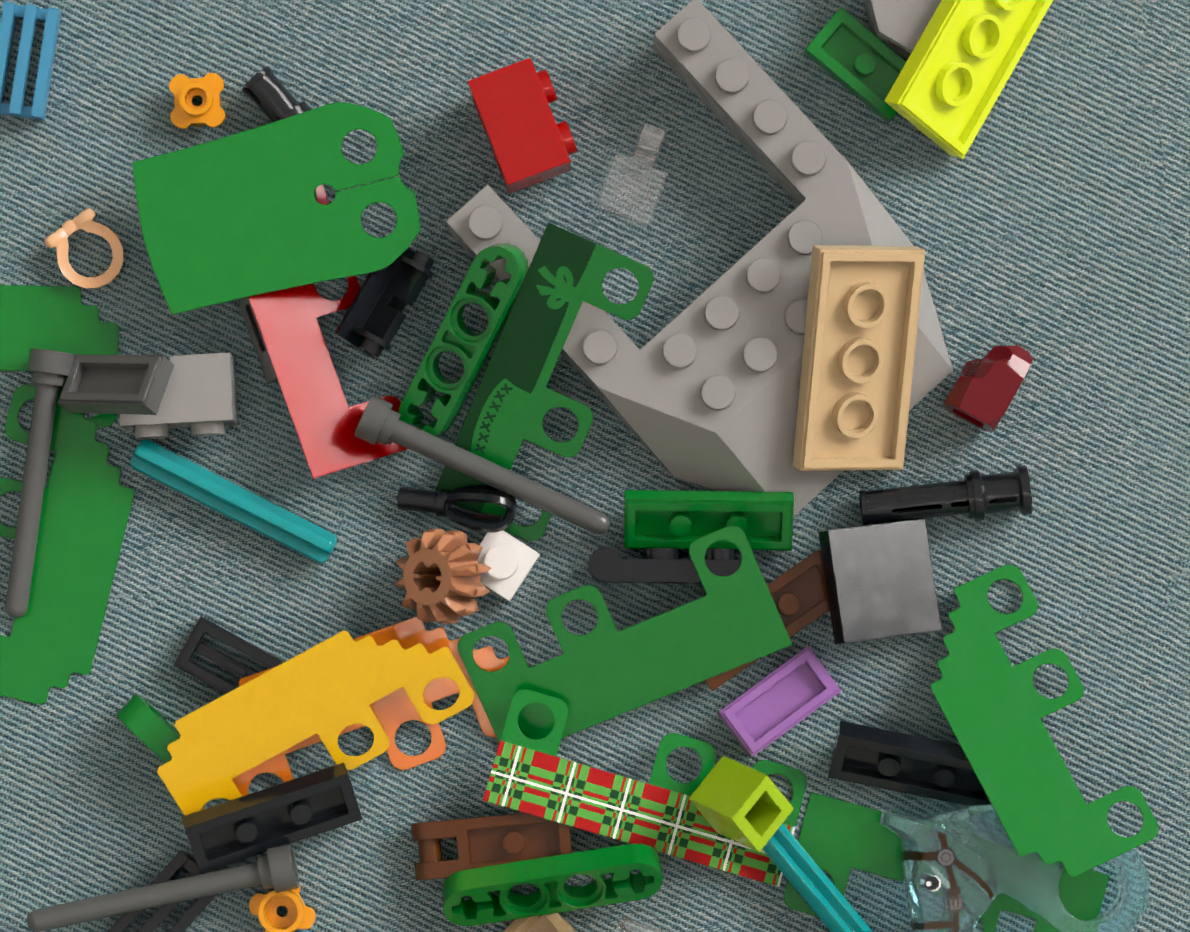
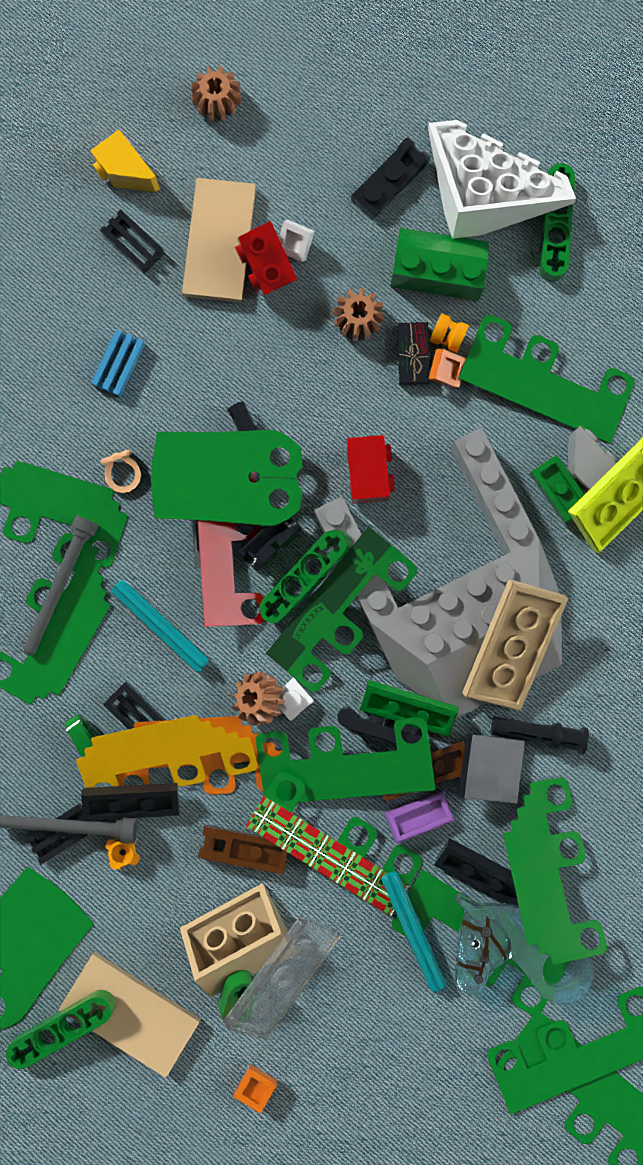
camera: 25 degrees right, 0 degrees up
(116, 384) = (115, 546): dark grey tile -> none
(196, 397) = (150, 561): light grey slope -> none
(208, 112) = (205, 417): light orange plate -> none
(383, 424) = (251, 609): dark grey piece -> none
(441, 504) = (269, 660): black piece -> none
(550, 877) = (304, 887): green beam -> none
(633, 183) = (419, 517): clear plate -> none
(741, 803) = (383, 869): lime brick -> none
(988, 386) = (579, 680): dark red rock -> none

